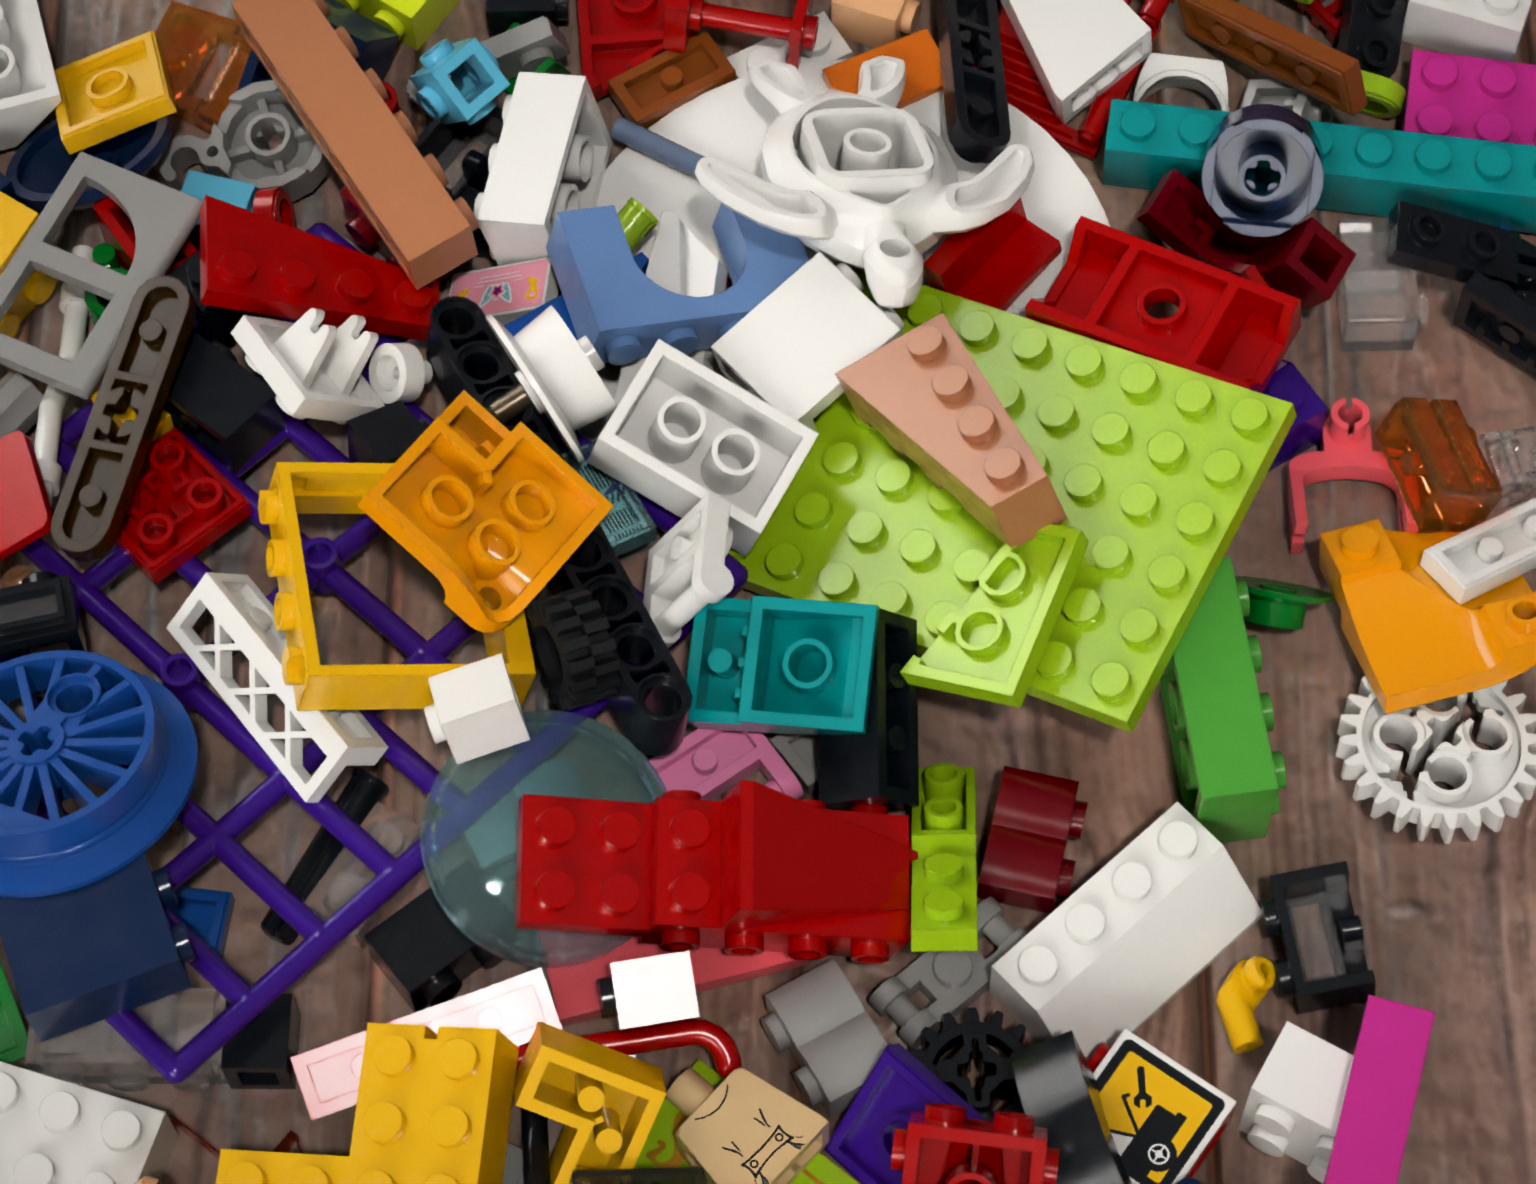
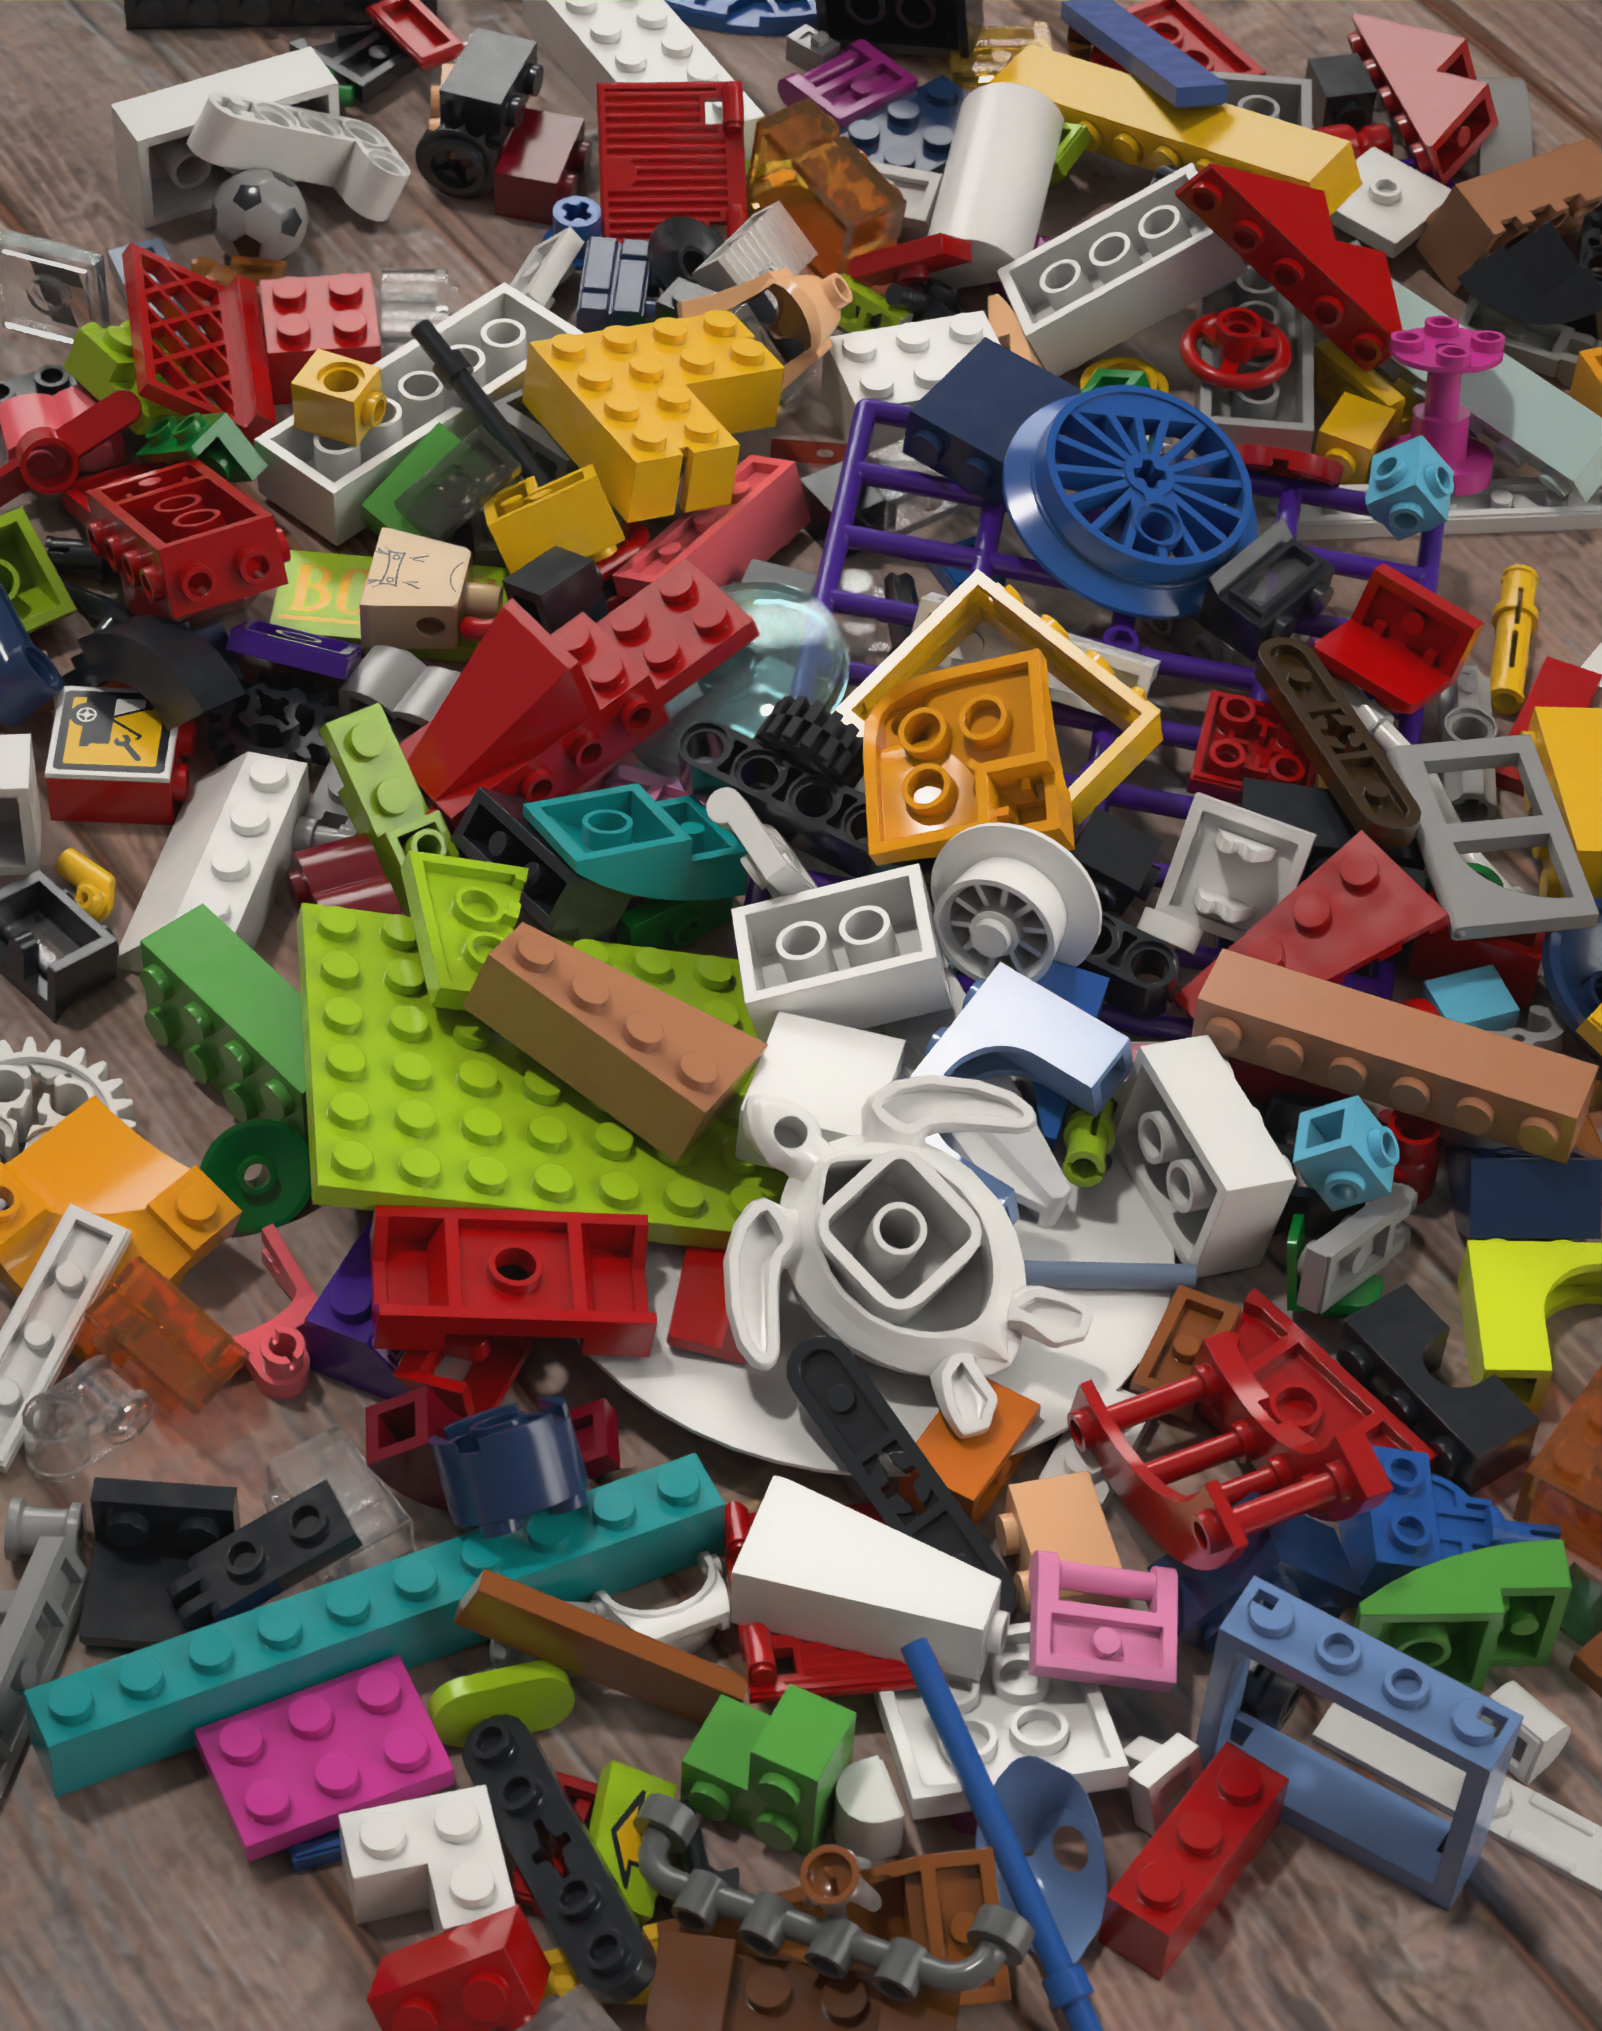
camera: 140 degrees right, 15 degrees down
(476, 709) = (840, 659): white brick -> none

